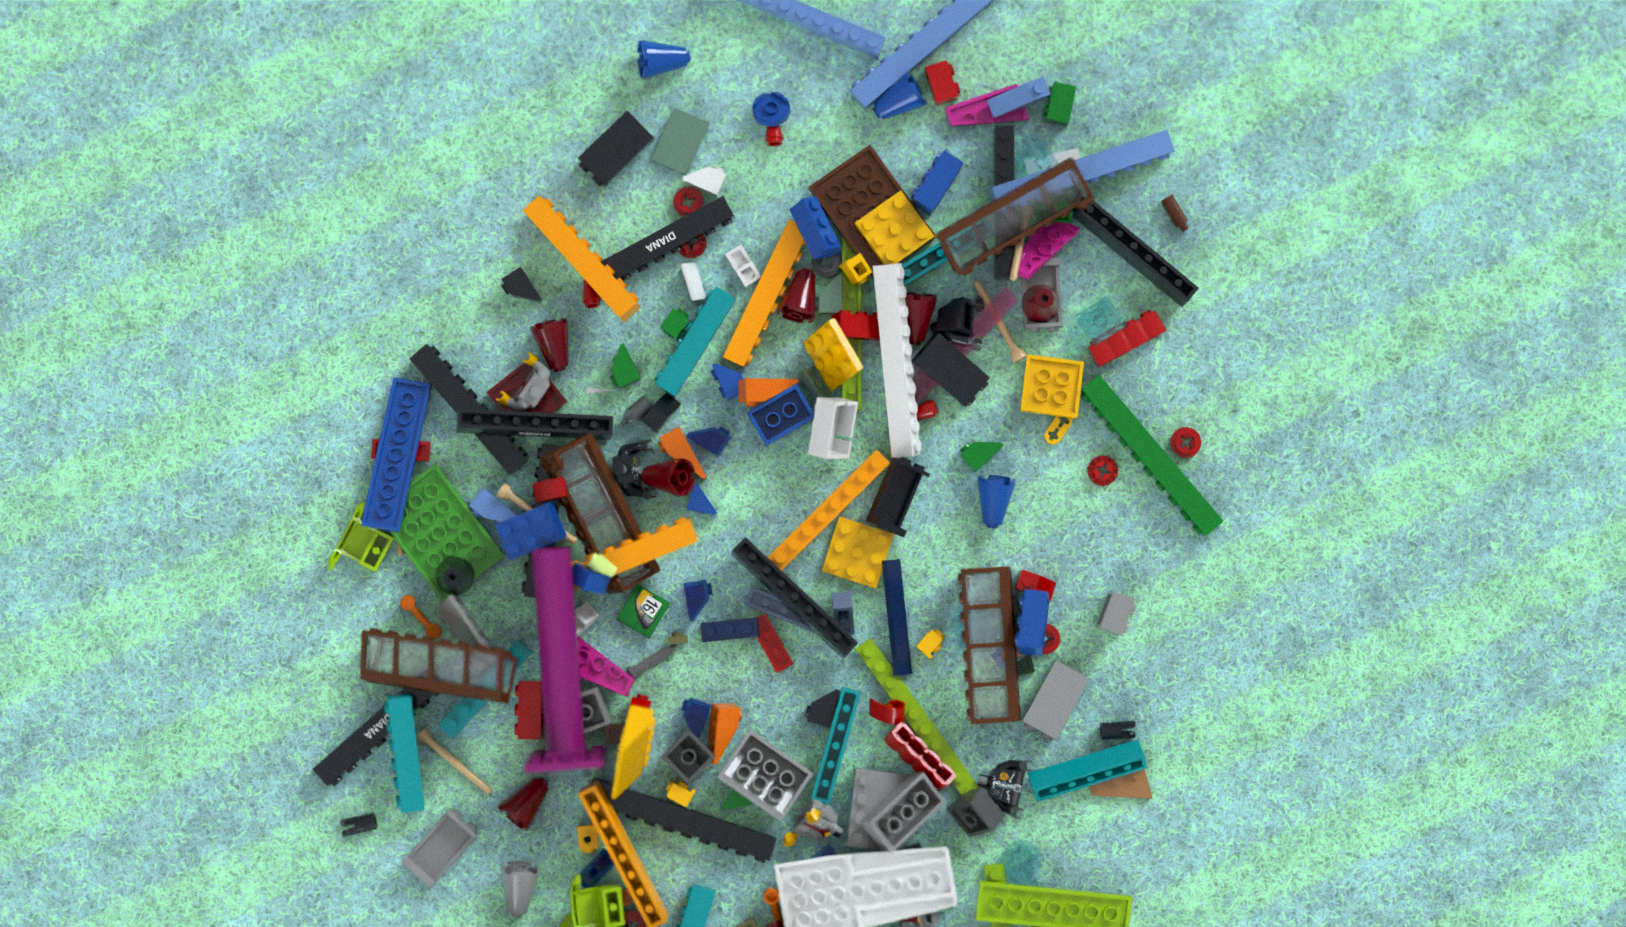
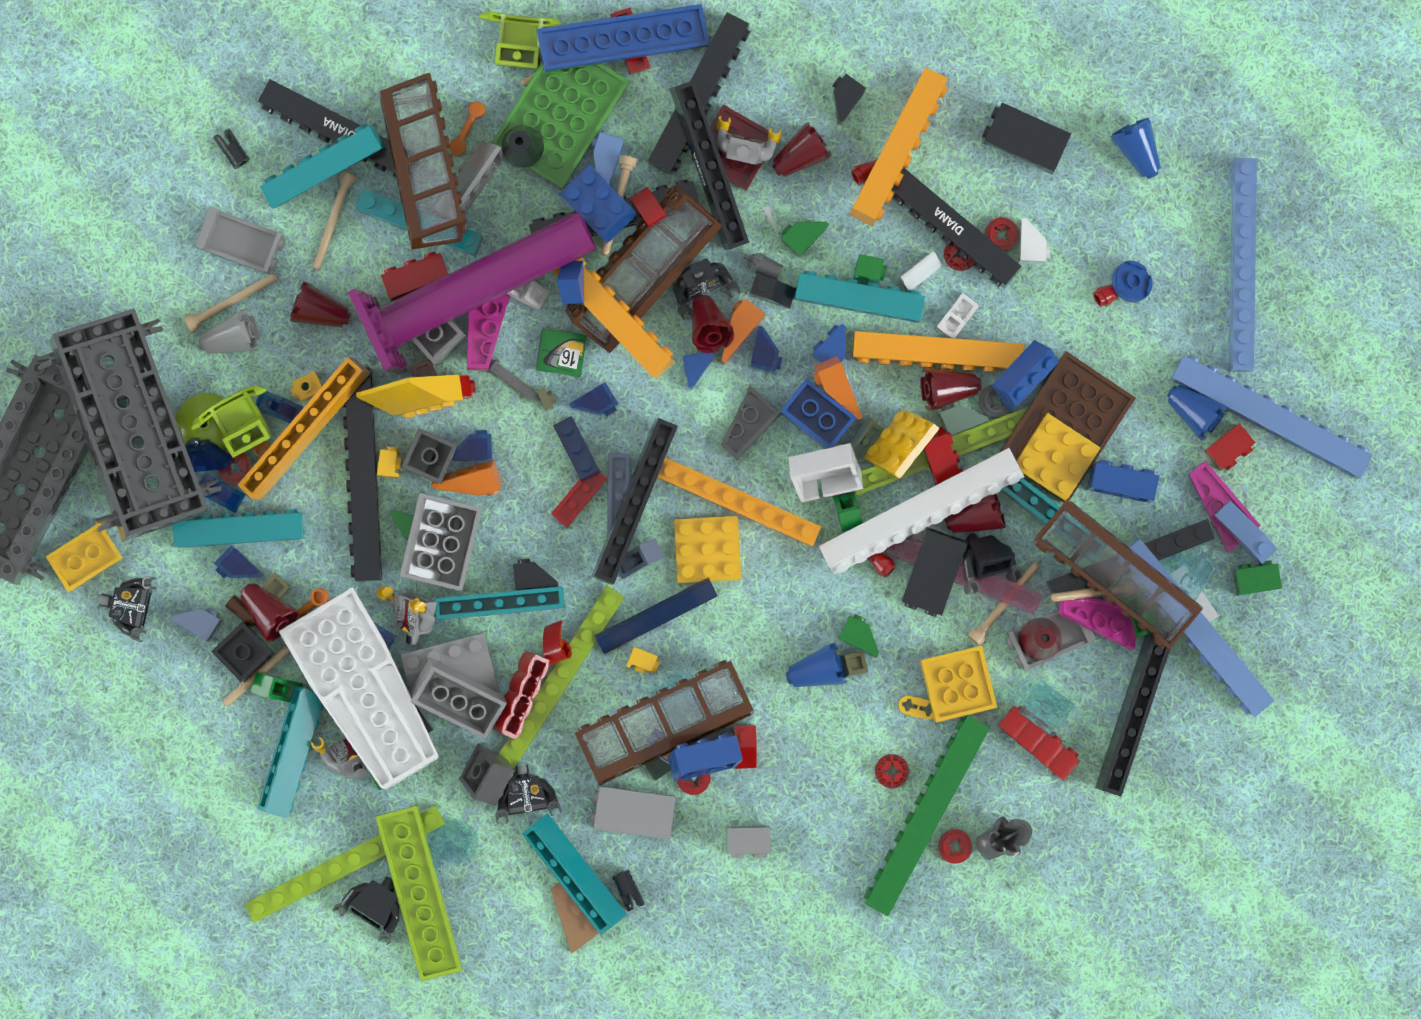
camera: 70 degrees right, 0 degrees up
(494, 913) = (194, 321): none -> tan piece
(601, 565) = (590, 288): yellowish green cone -> none
(680, 141) = (1061, 201): sand green tile -> none
(764, 474) = (751, 421): none -> dark grey wing
(859, 264) = (1006, 434): yellow brick -> none
(871, 422) = (847, 510): none -> green slope
(895, 495) = (781, 565): black panel -> none
(1001, 466) = (854, 664): none -> olive plate
(1175, 212) = (1191, 743): reddish brown cylinder -> none
(1195, 399) = (1004, 838): none -> dark grey head

